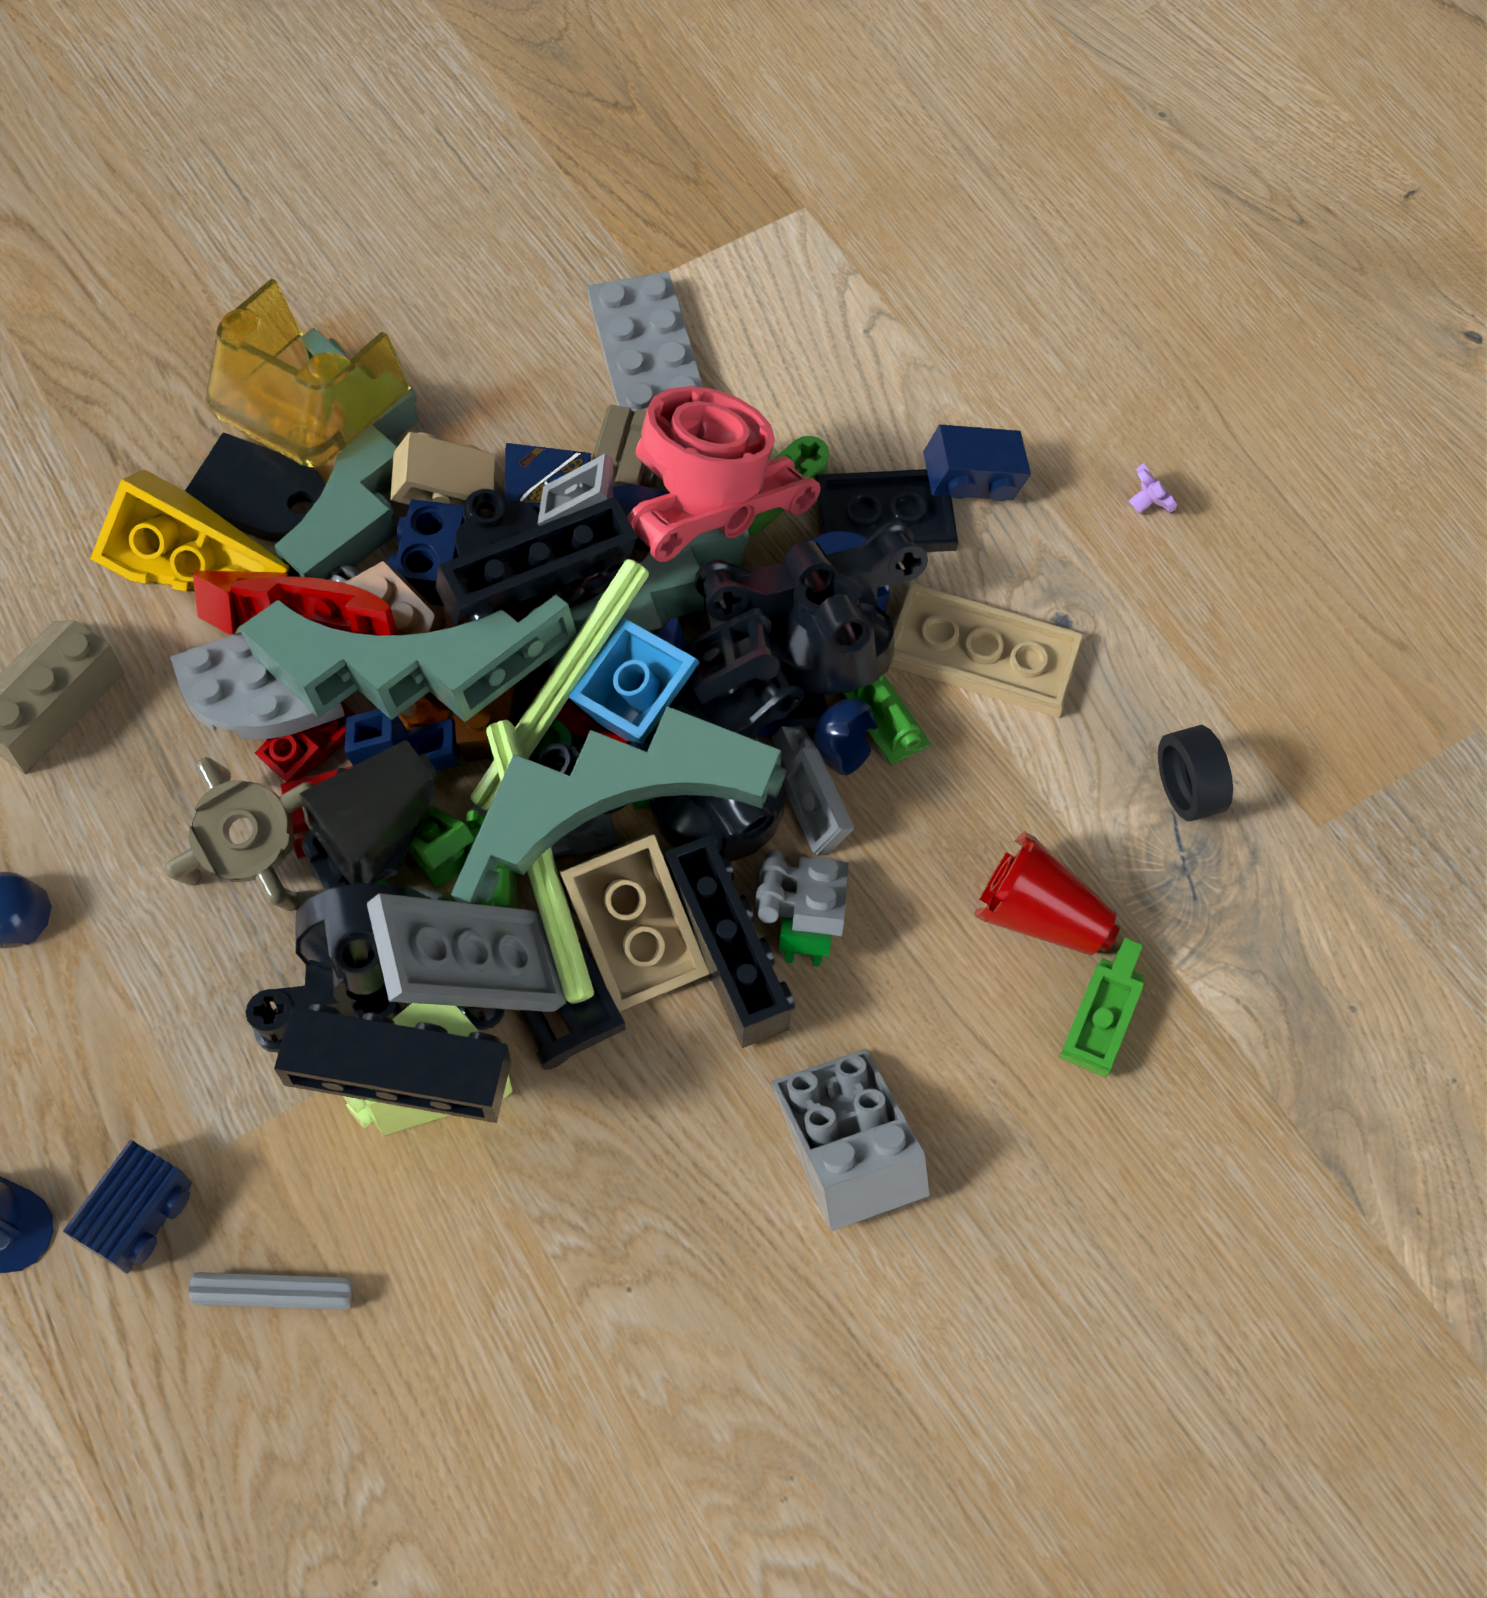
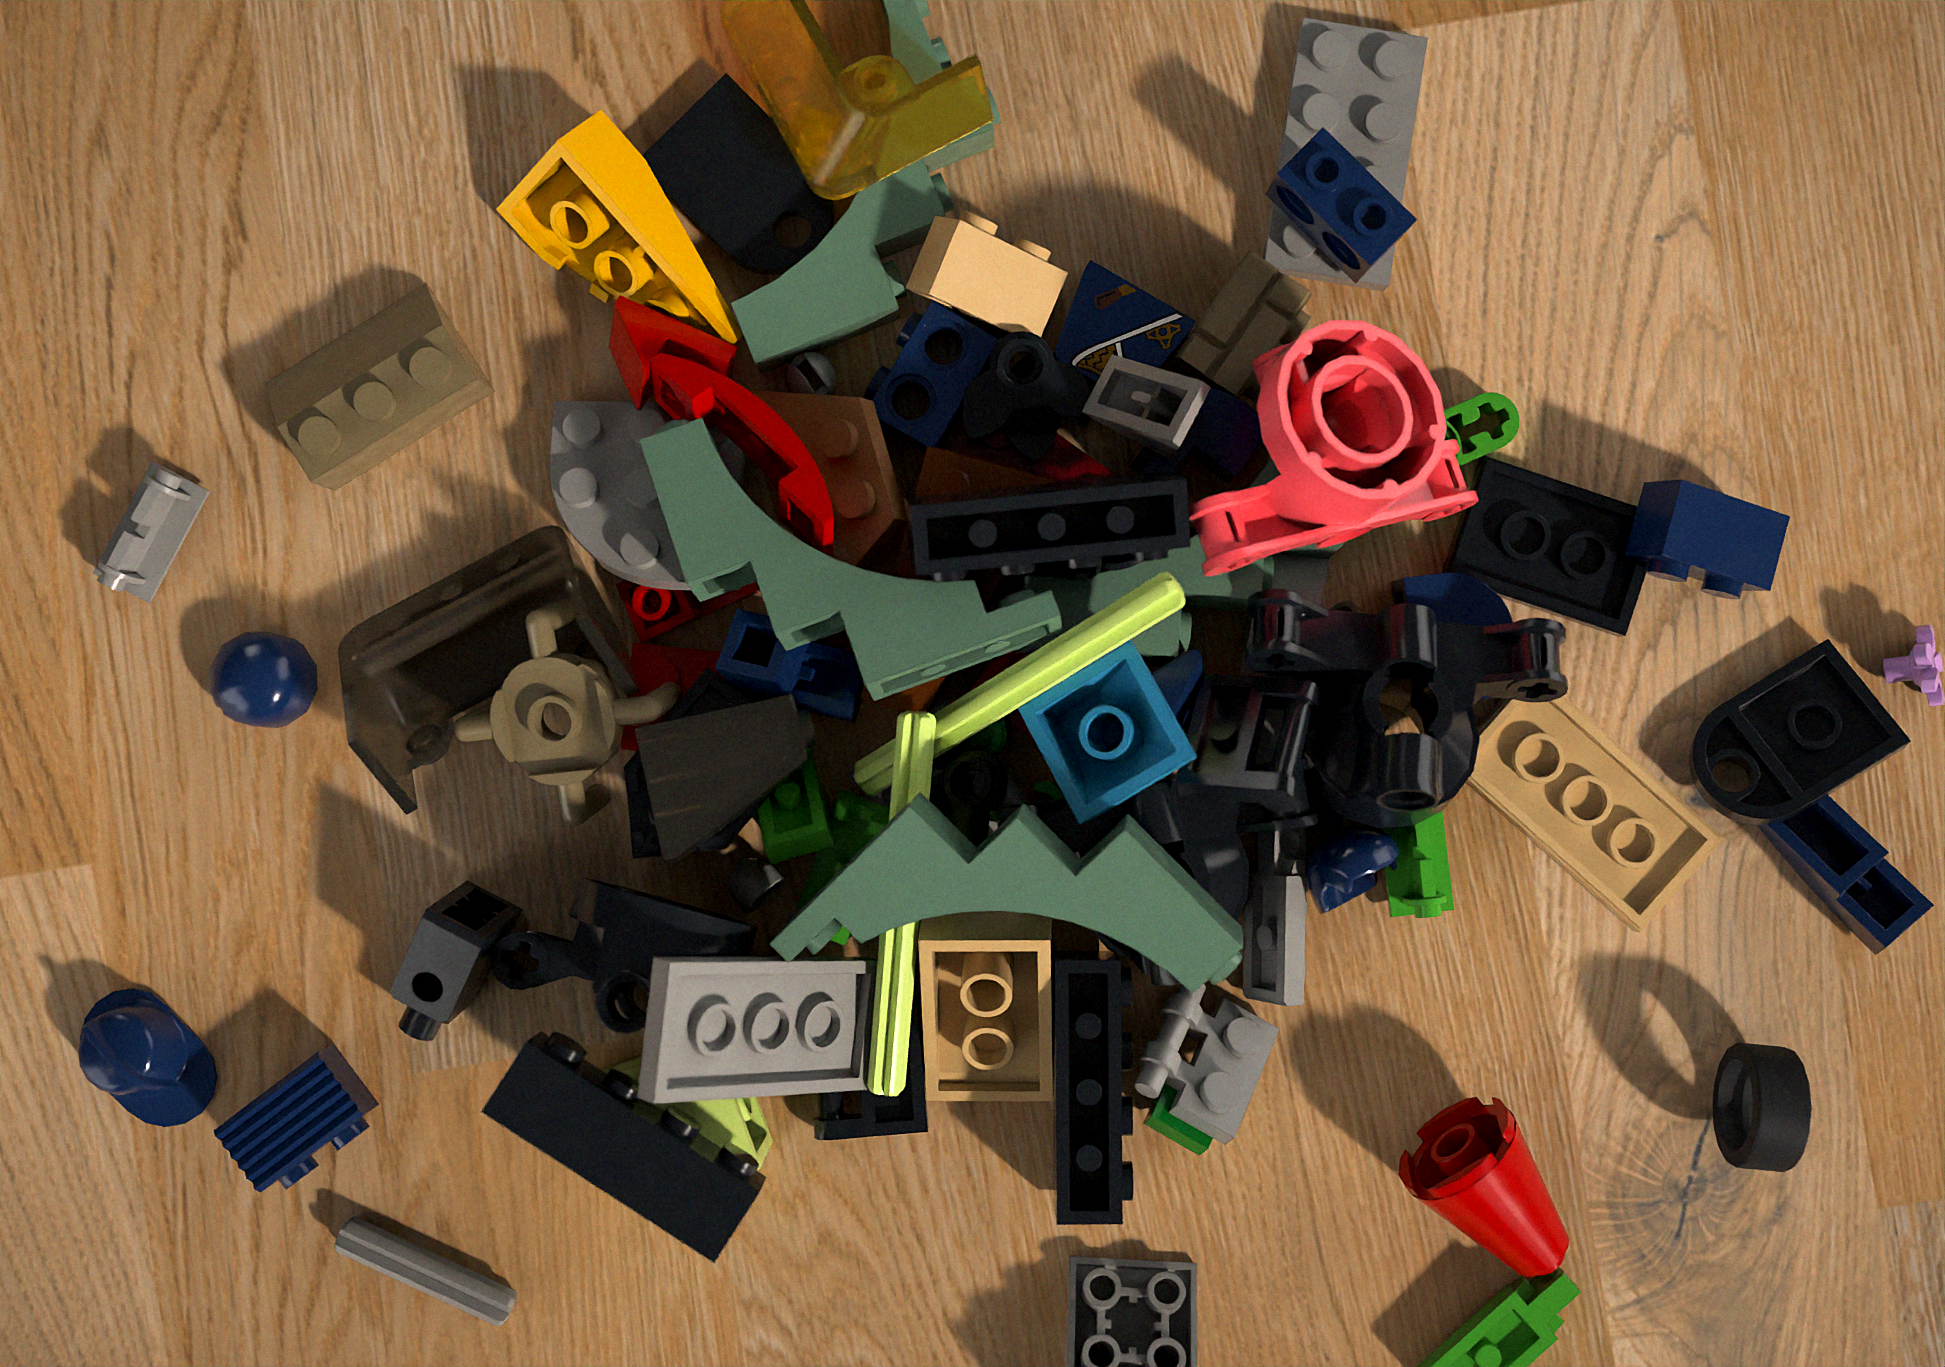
camera: 25 degrees right, 25 degrees up
(129, 846) = (456, 646): none -> clear smoke windscreen
(210, 1017) = (450, 957): none -> black torso
(651, 356) = (1339, 205): none -> dark blue brick
(1098, 557) = (1794, 737): none -> black tile
(1164, 618) = (1849, 873): none -> dark blue slope

